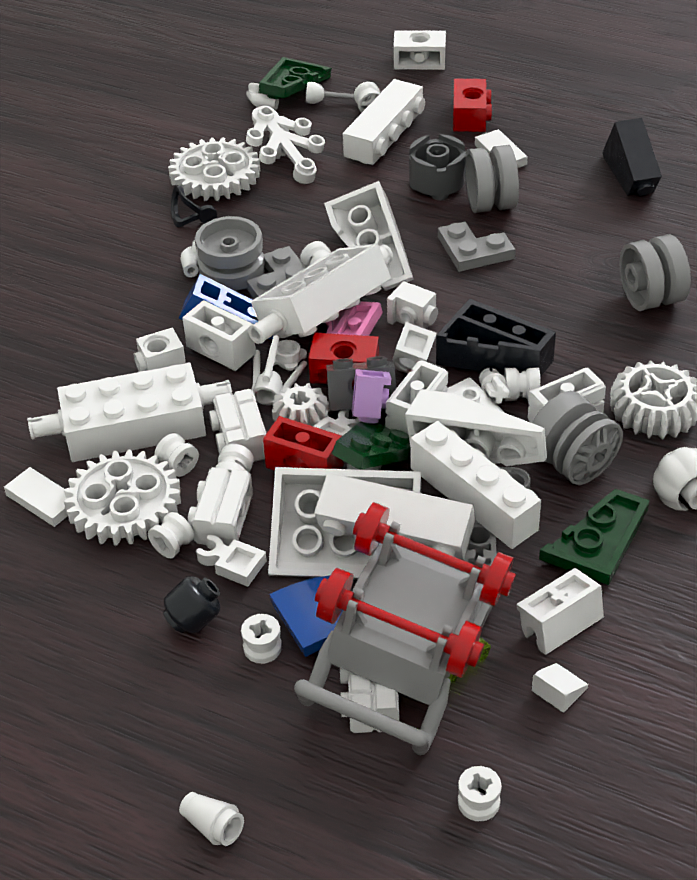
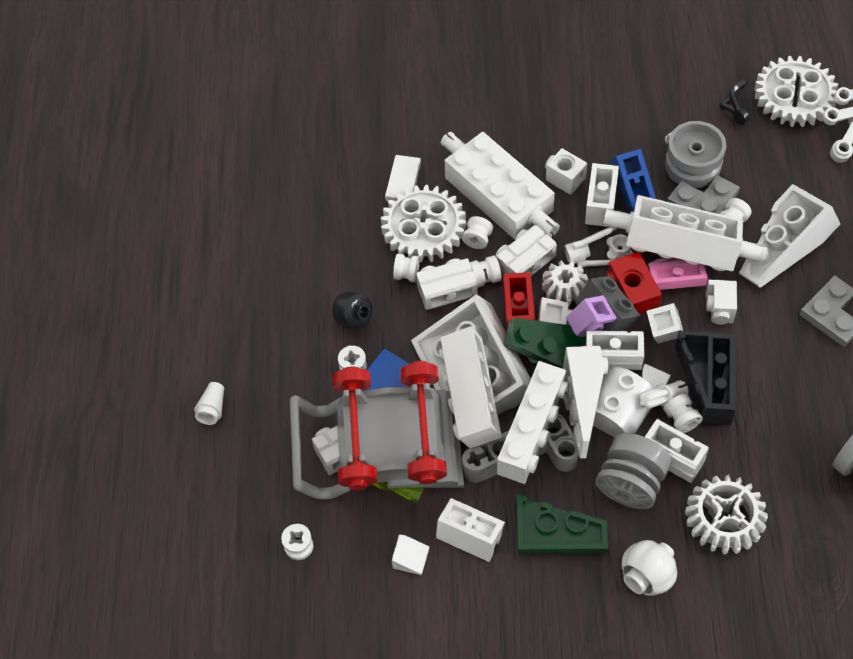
camera: 65 degrees right, 15 degrees up
(235, 562) = (407, 314): white plate -> none

